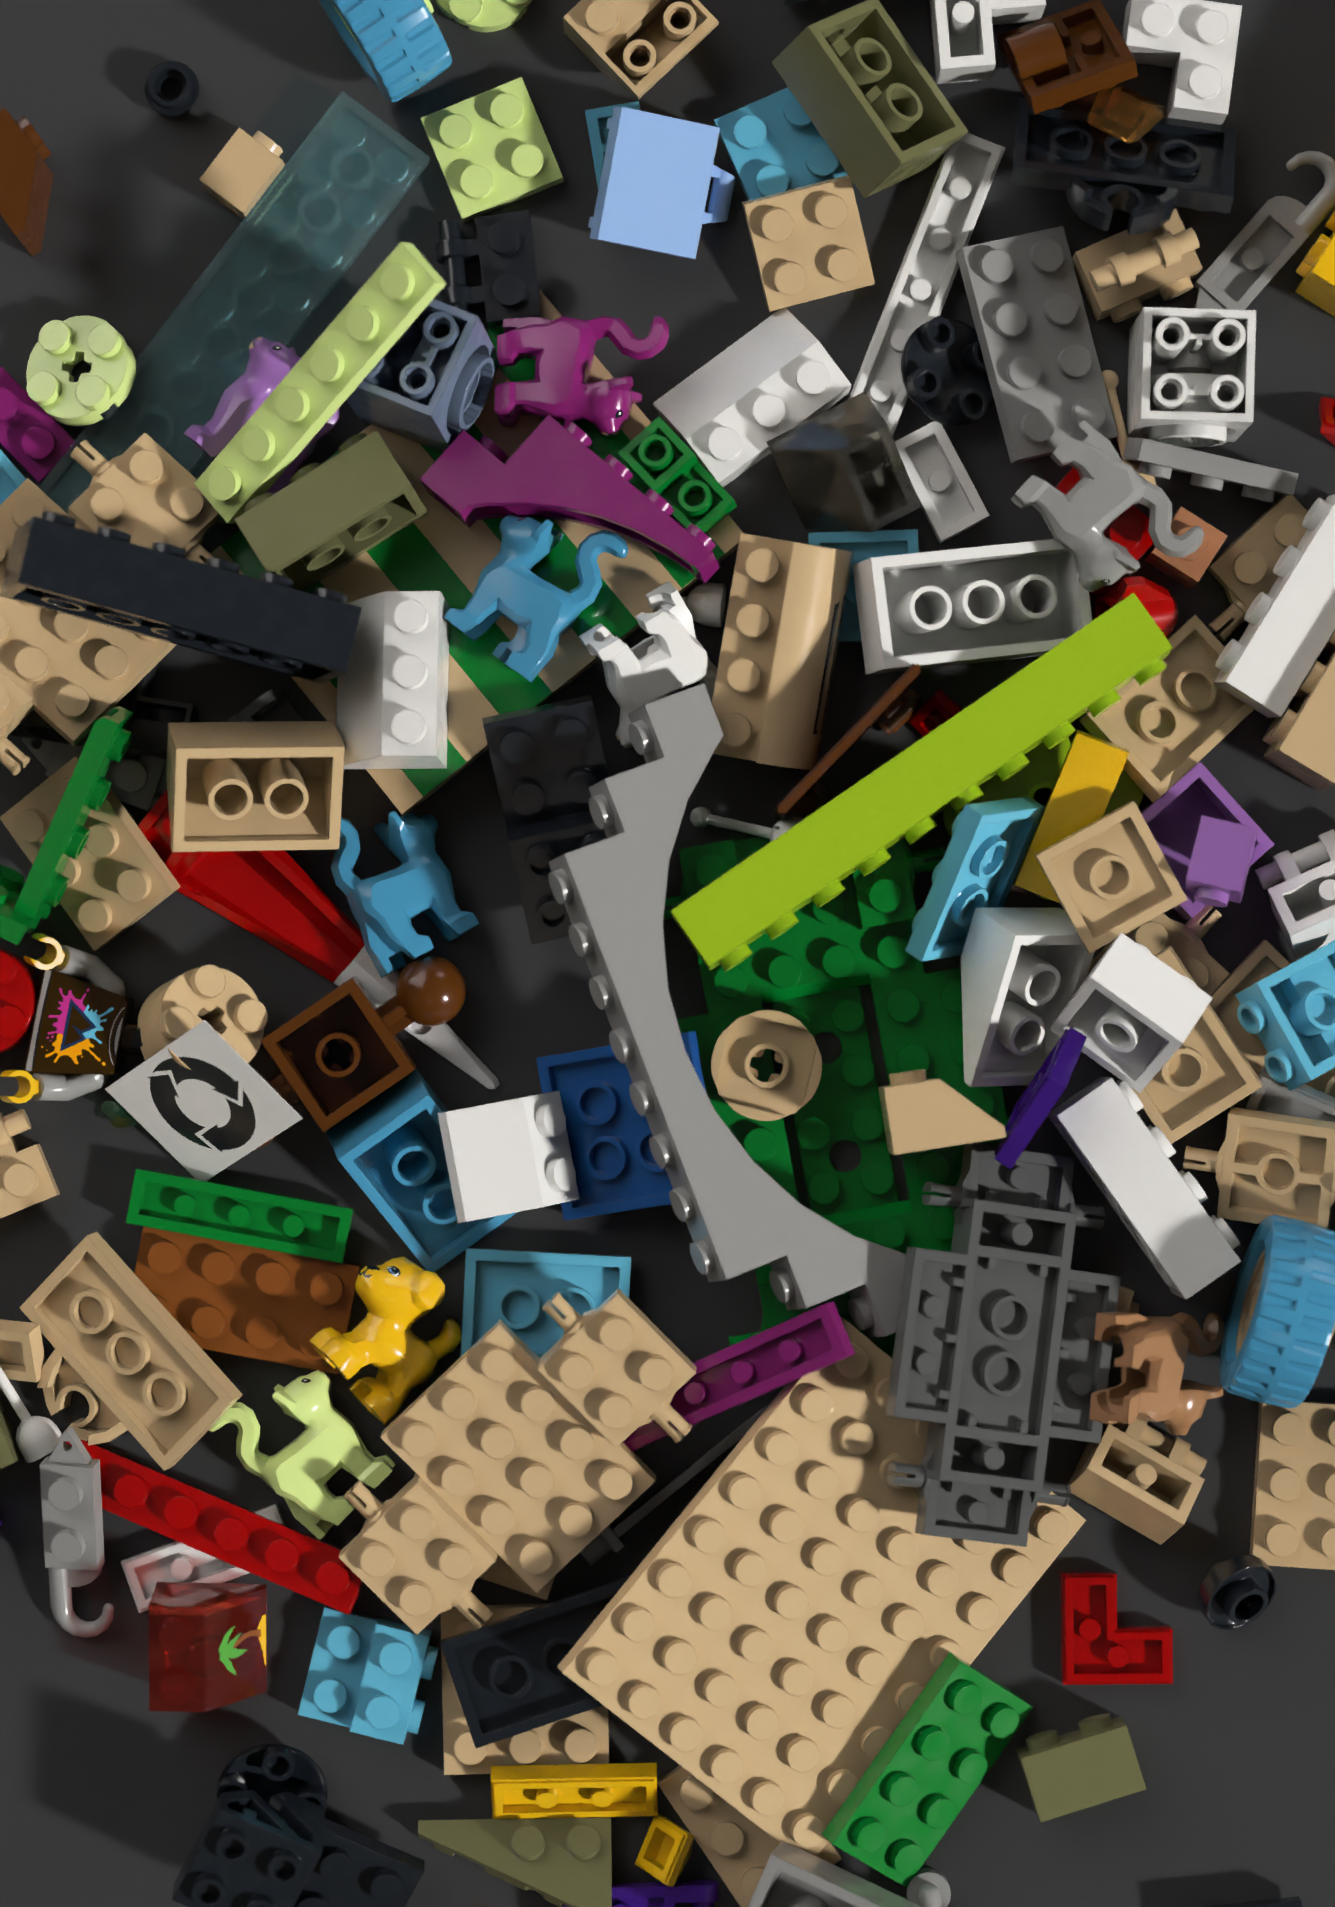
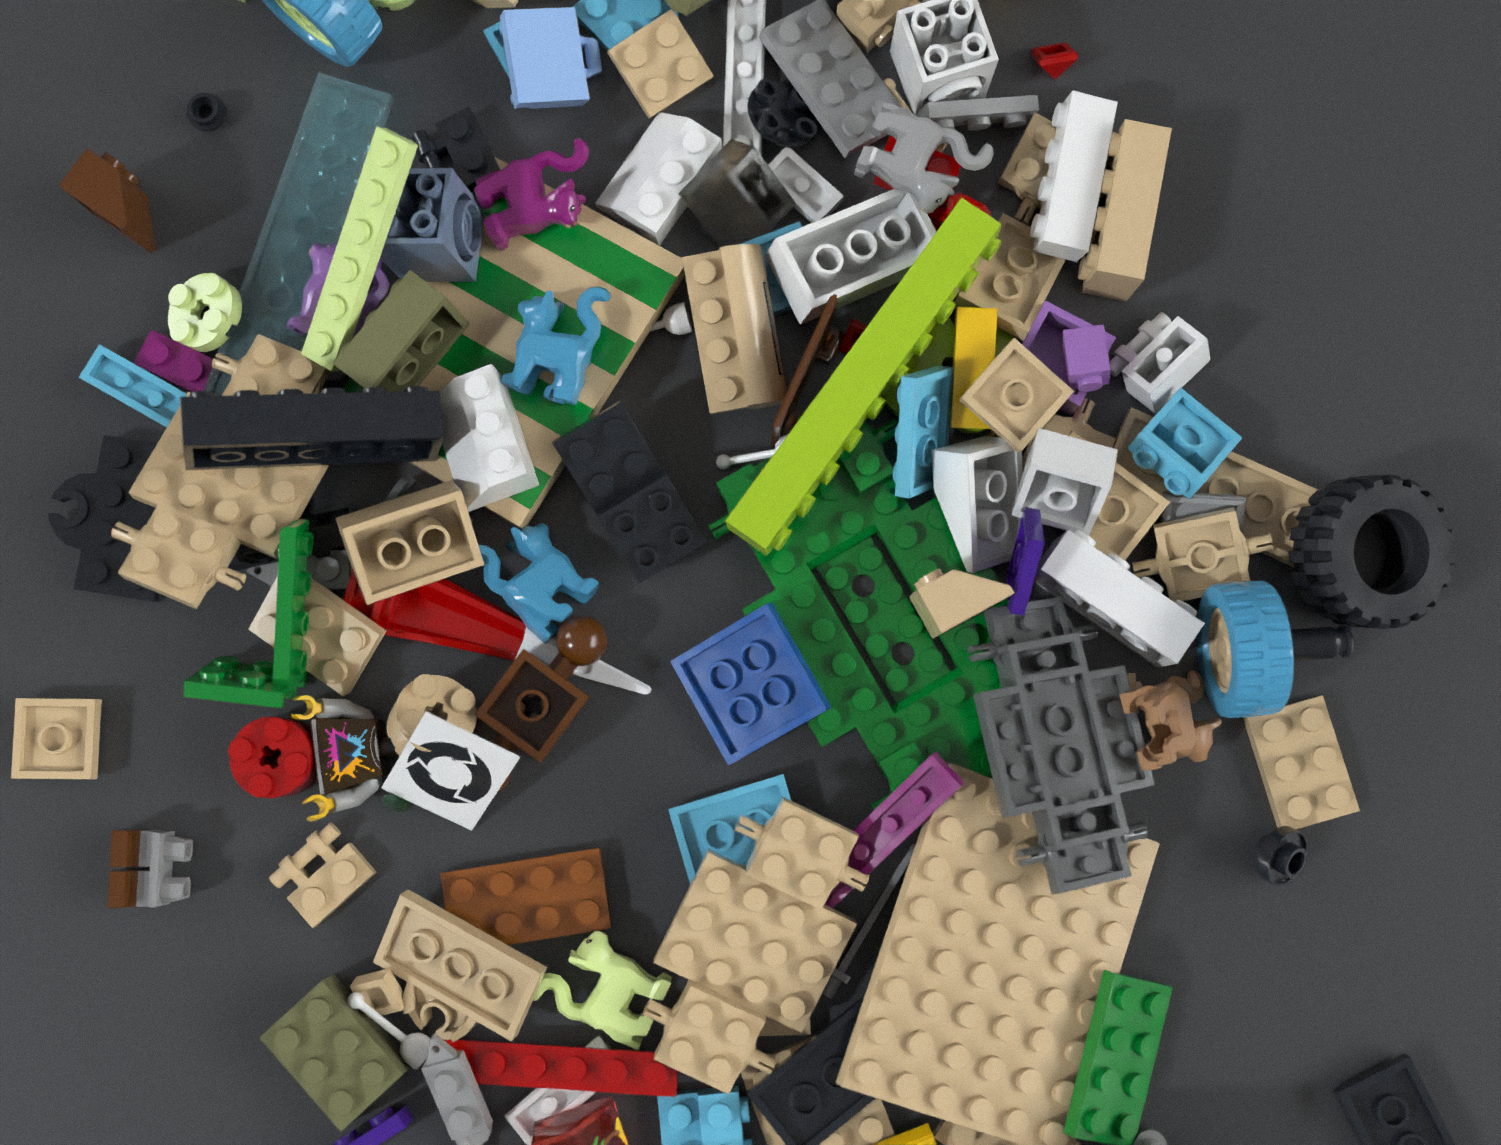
camera: 15 degrees left, 5 degrees down
(239, 1215) = (504, 842): green plate -> none
(243, 171) = (268, 146): tan brick -> none
(395, 1299) = (631, 860): yellow animal -> none
(401, 1166) = (619, 767): dark azure slope -> none
(492, 149) = (431, 79): yellowish green plate -> none
(508, 1156) = (674, 734): white slope -> none
(565, 481) = (556, 264): magenta arch -> none
(616, 916) = (690, 541): light grey arch -> none
(656, 664) = (657, 370): white animal -> none
(676, 475) = (626, 239): green slope -> none
(793, 1049) = (842, 590): tan plate -> none
(1080, 1767) = (1222, 1017): olive brick -> none
(1099, 1650) = (1200, 929): red tile -> none
(1140, 1478) = (1188, 801): tan brick -> none
(1191, 567) = (983, 182): nougat brick -> none

